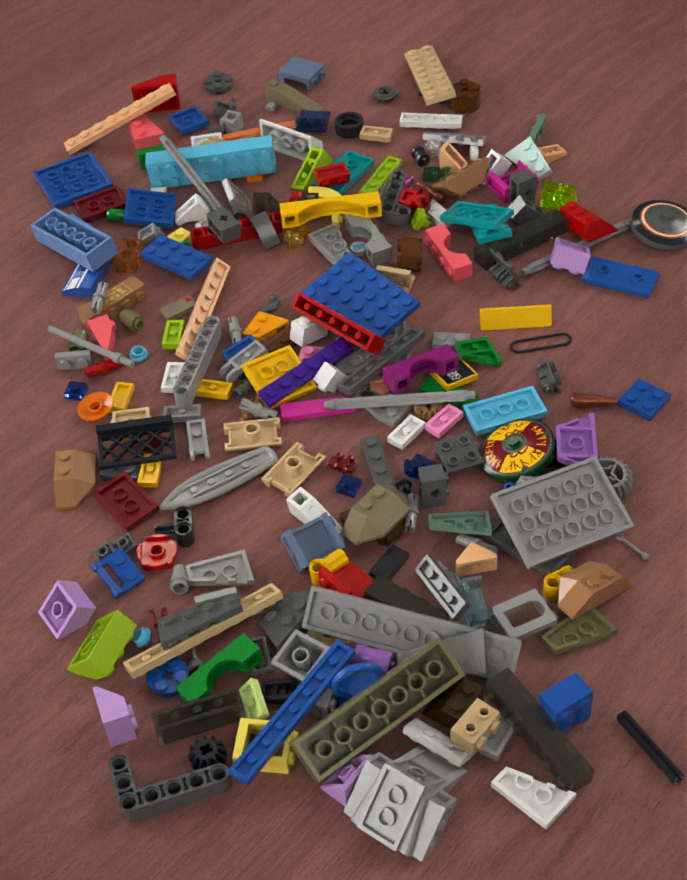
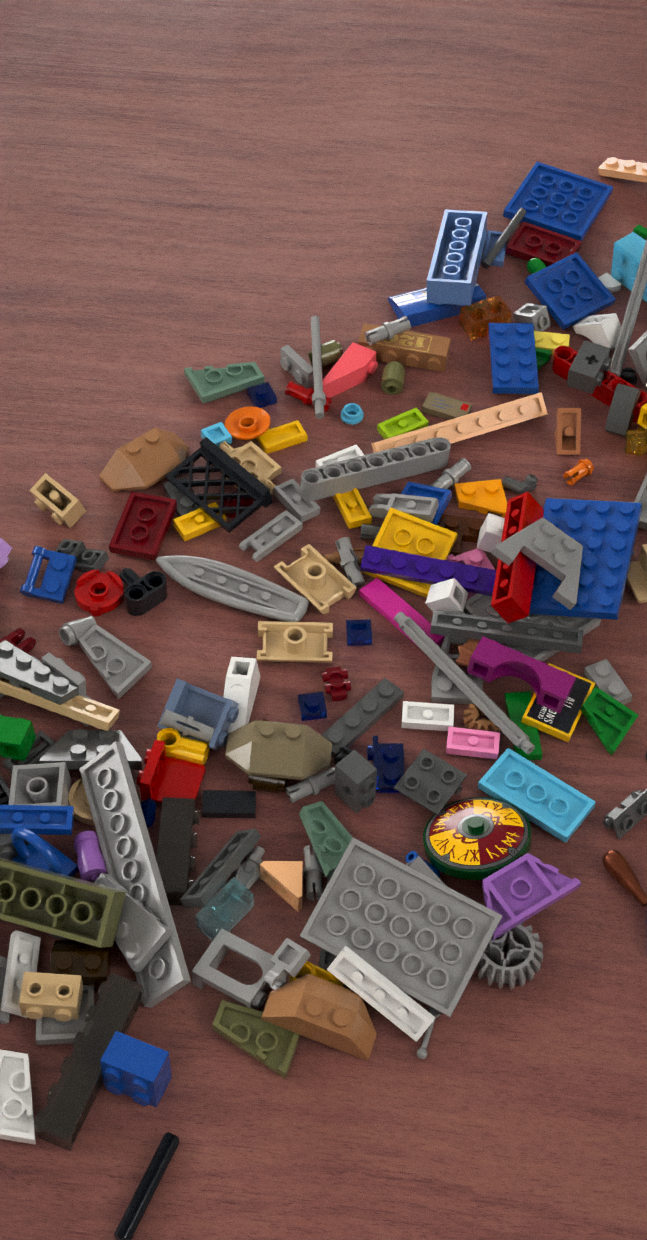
camera: 50 degrees right, 5 degrees up
(44, 404) = (220, 382): none -> sand green wing
(61, 536) = (60, 502): none -> tan brick
(71, 205) = (503, 238): none -> dark grey bar
(87, 428) = (217, 434): none -> medium azure plate
(257, 265) = (568, 431): none -> nougat slope
(287, 272) = (582, 469): none -> orange pin
(314, 433) = (359, 632): none -> clear blue plate
(326, 547) = (170, 719): none -> light grey pin
(355, 302) = (552, 551): none -> light grey wing
(544, 581) = (286, 960): none -> light grey plate
(597, 549) = (381, 993): none -> white plate

